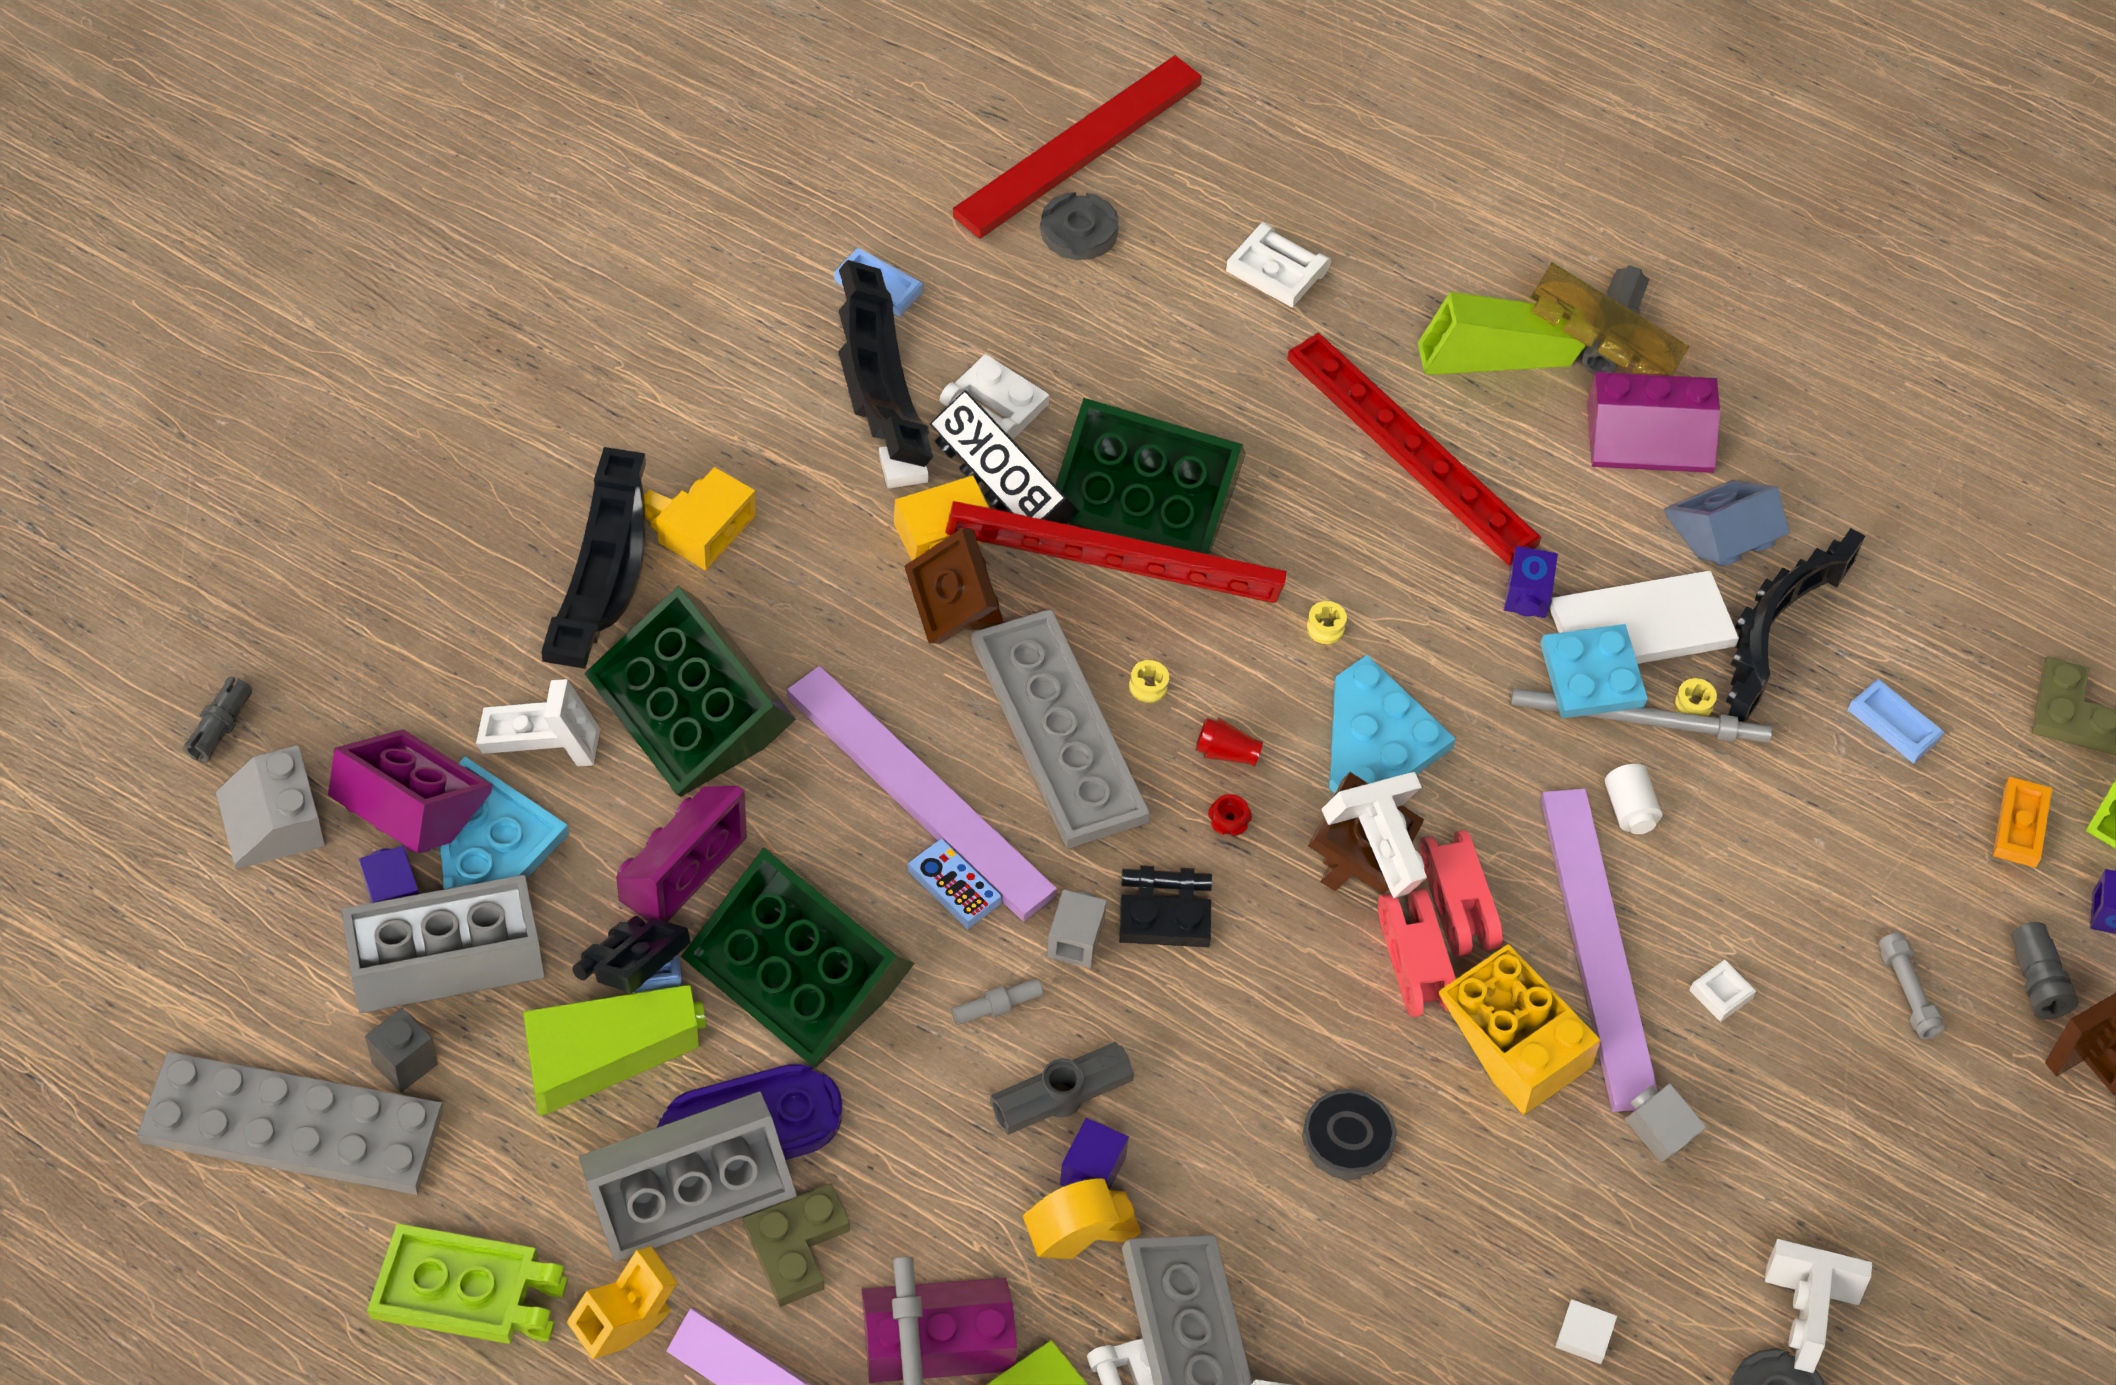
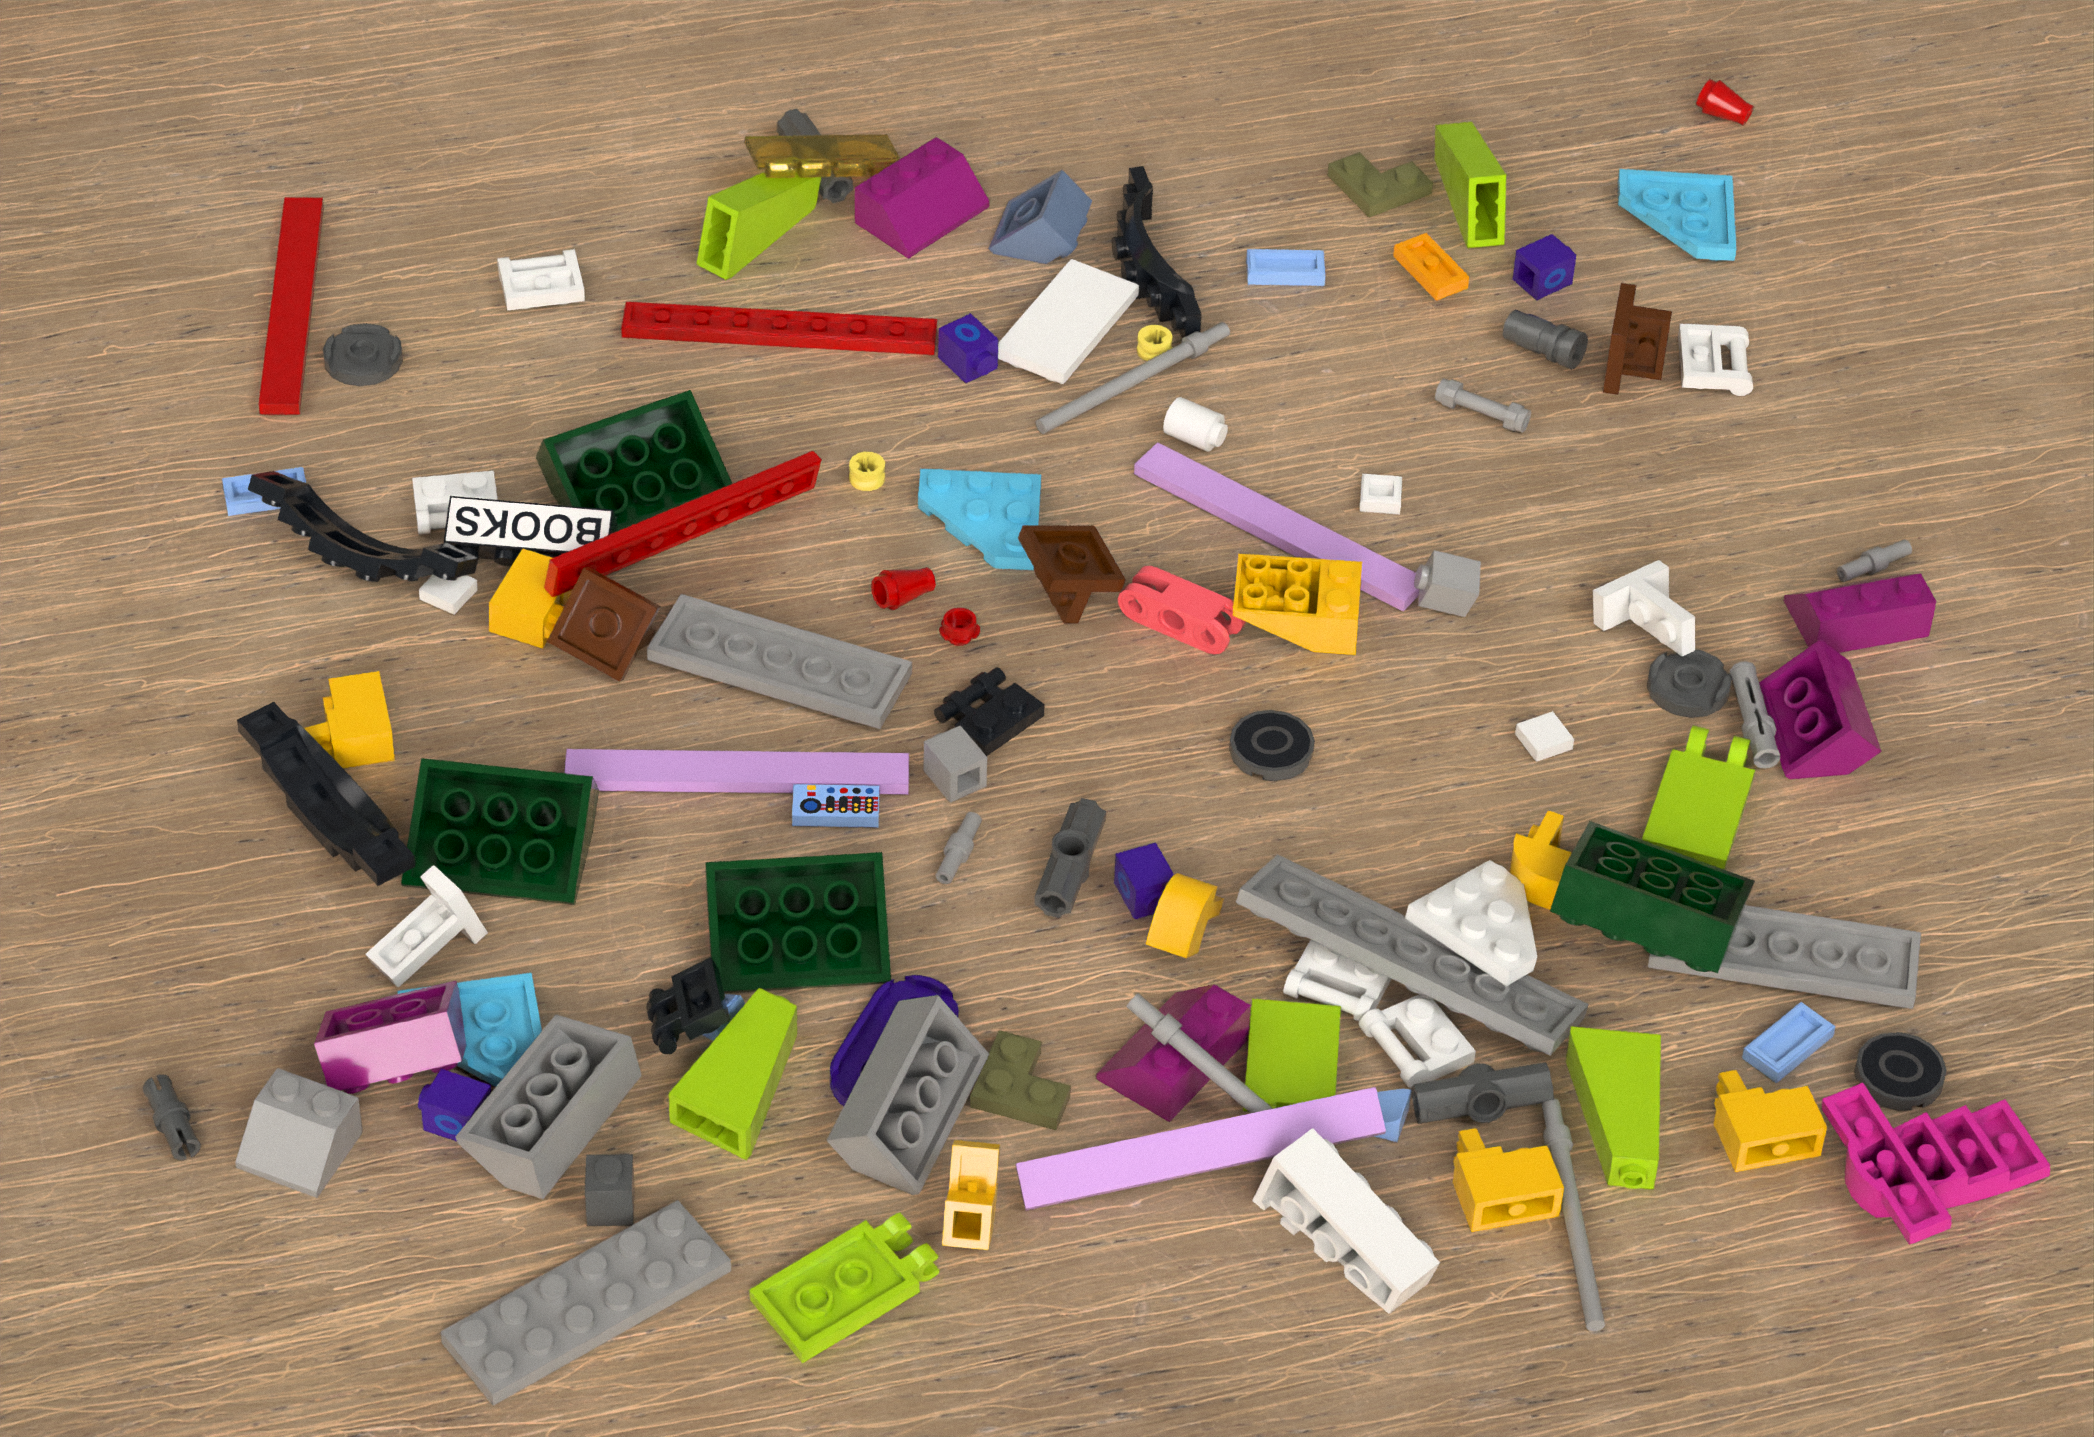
camera: 45 degrees left, 10 degrees down
(684, 853) = (636, 921): magenta slope -> none
(1137, 683) = (793, 594): light yellow bush -> none
(1384, 827) = (1093, 541): white bracket -> none
(1461, 894) = (1158, 546): coral piece -> none
(1593, 671) = (1079, 367): medium azure plate -> none

